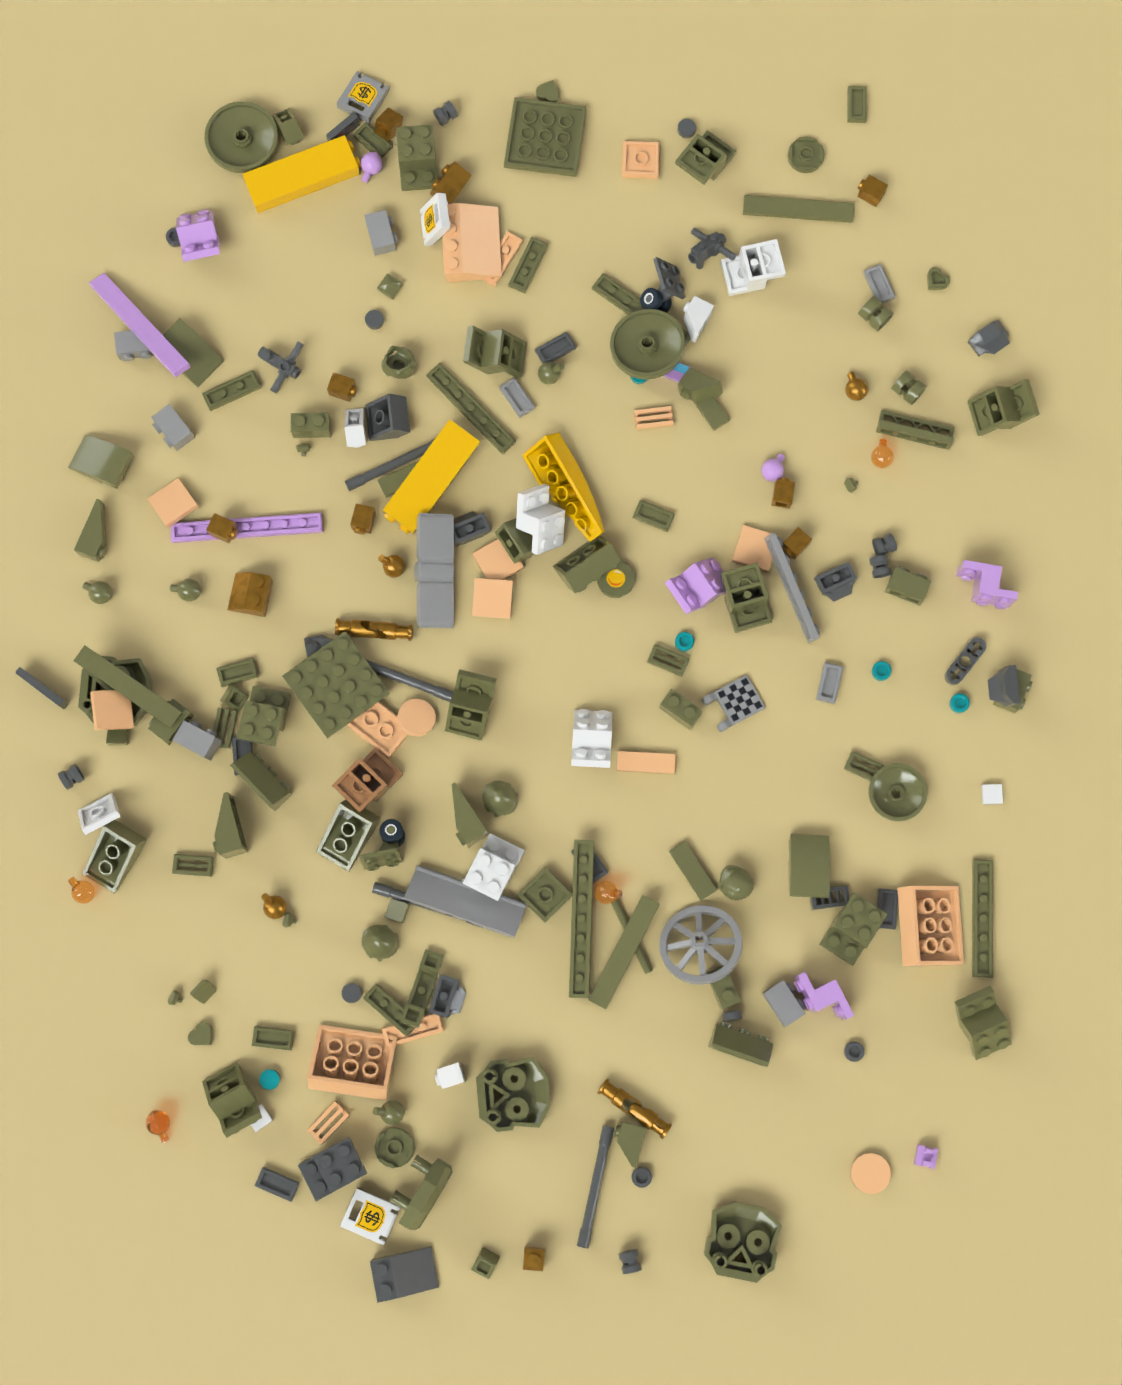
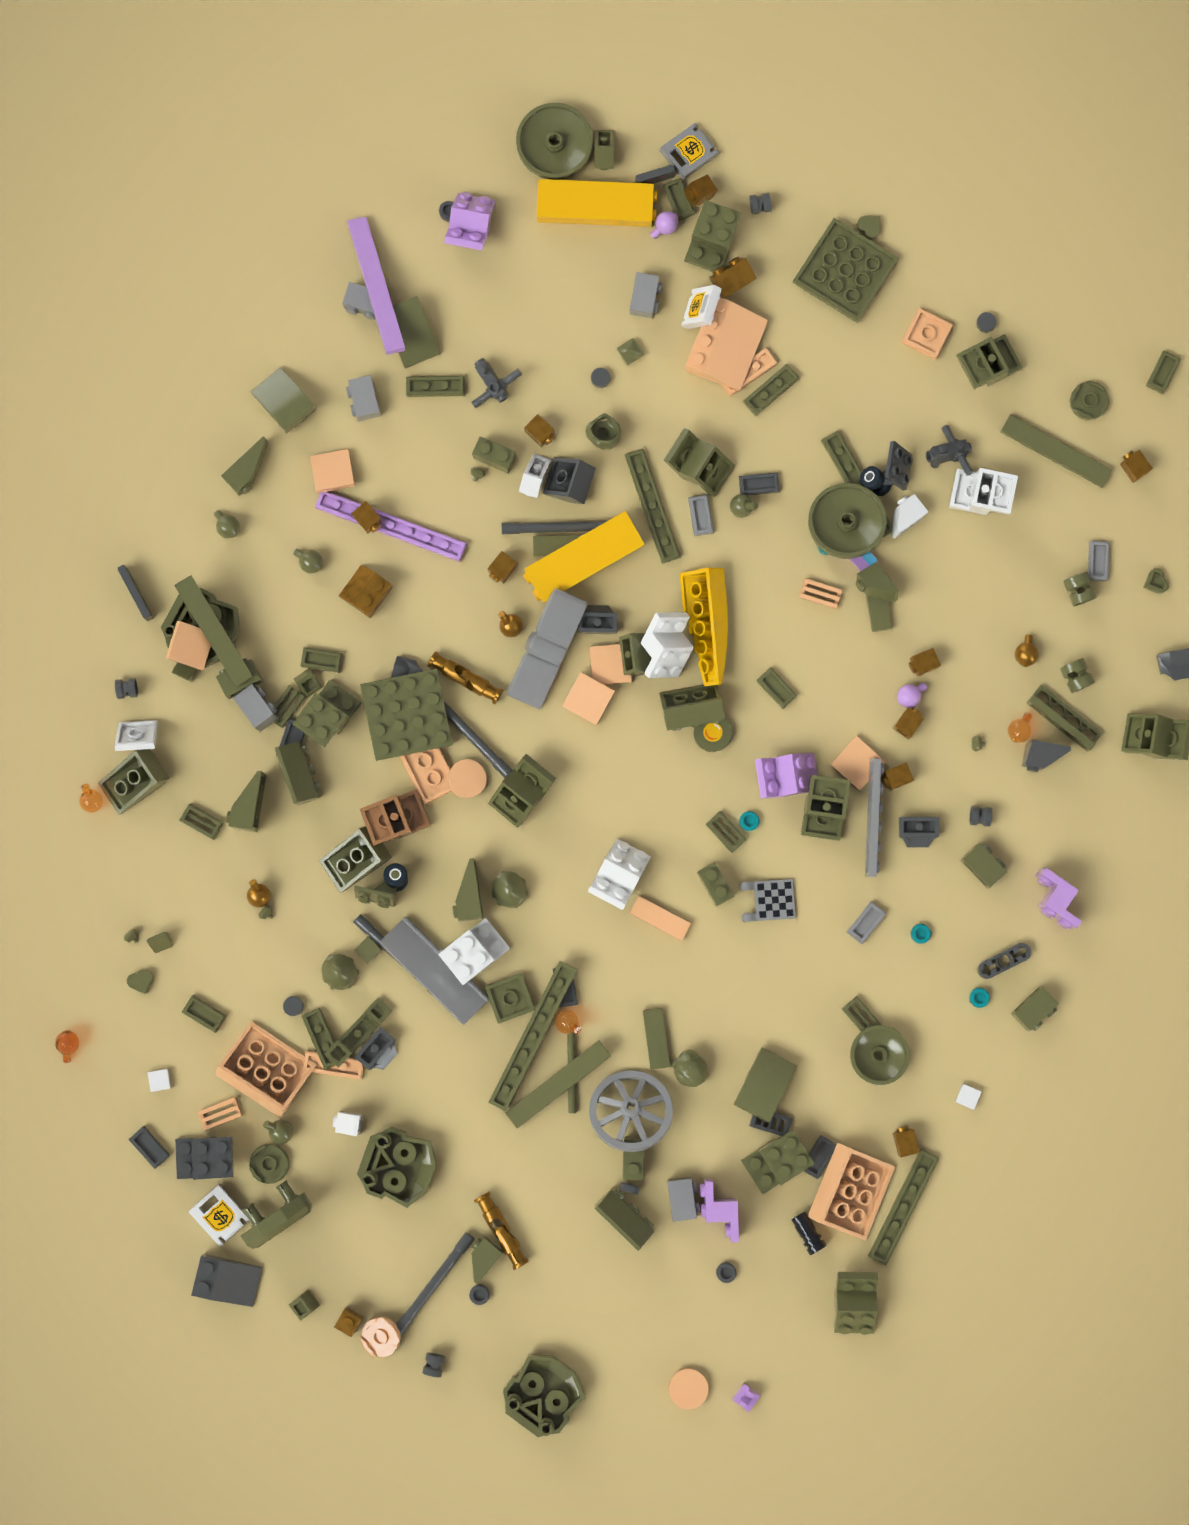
camera: 25 degrees right, 5 degrees up
(231, 1099) = (142, 1053): olive bracket -> none
(269, 1079) = (184, 1050): teal tile -> none
(569, 1258) = (380, 1336): none -> light nougat tile
(772, 435) = (924, 662): none -> pearl gold brick
(880, 566) = (968, 830): dark grey wheel -> none
(910, 466) = (1042, 754): none -> dark grey slope
(910, 981) = (808, 1233): none -> black axle
(957, 859) = (905, 1141): none -> pearl gold brick
(1004, 687) = (1026, 1003): dark grey slope -> none

